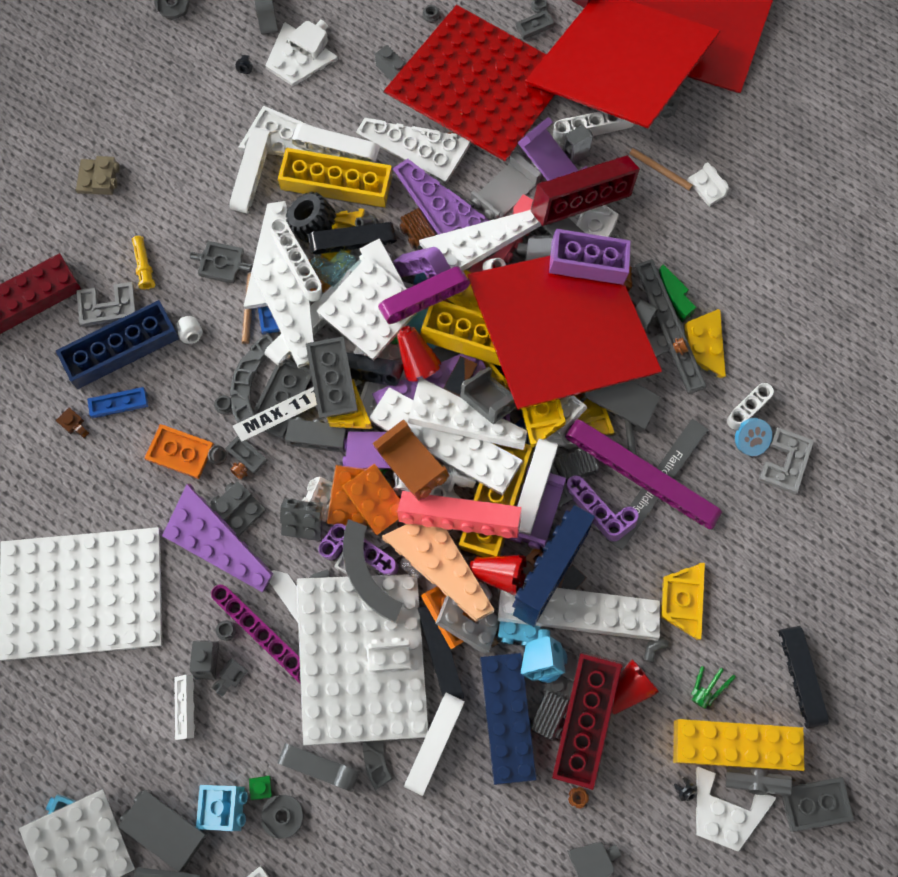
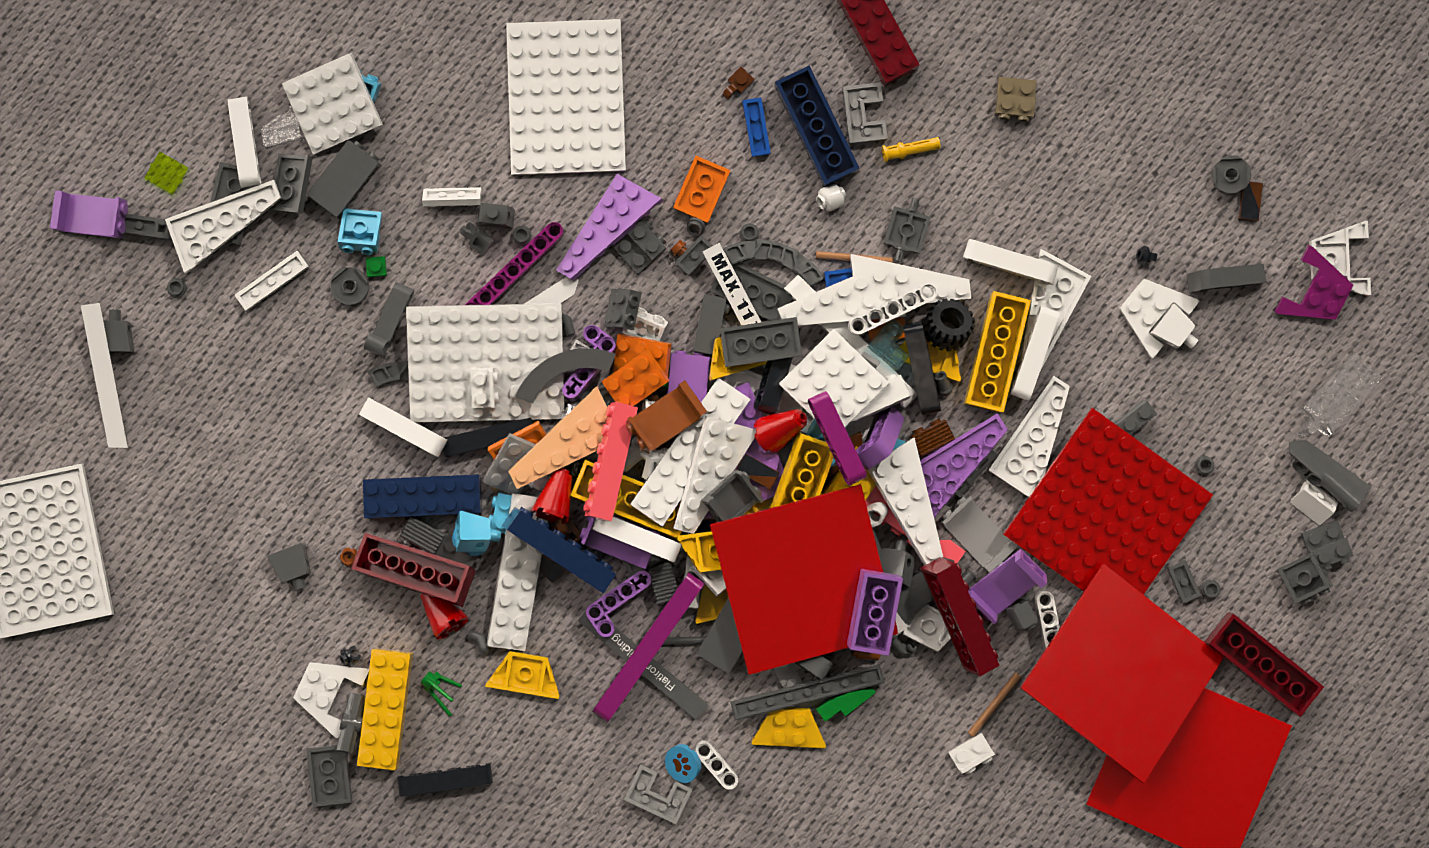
camera: 90 degrees right, 15 degrees up
(680, 346) = (778, 698): dark orange plate -> none

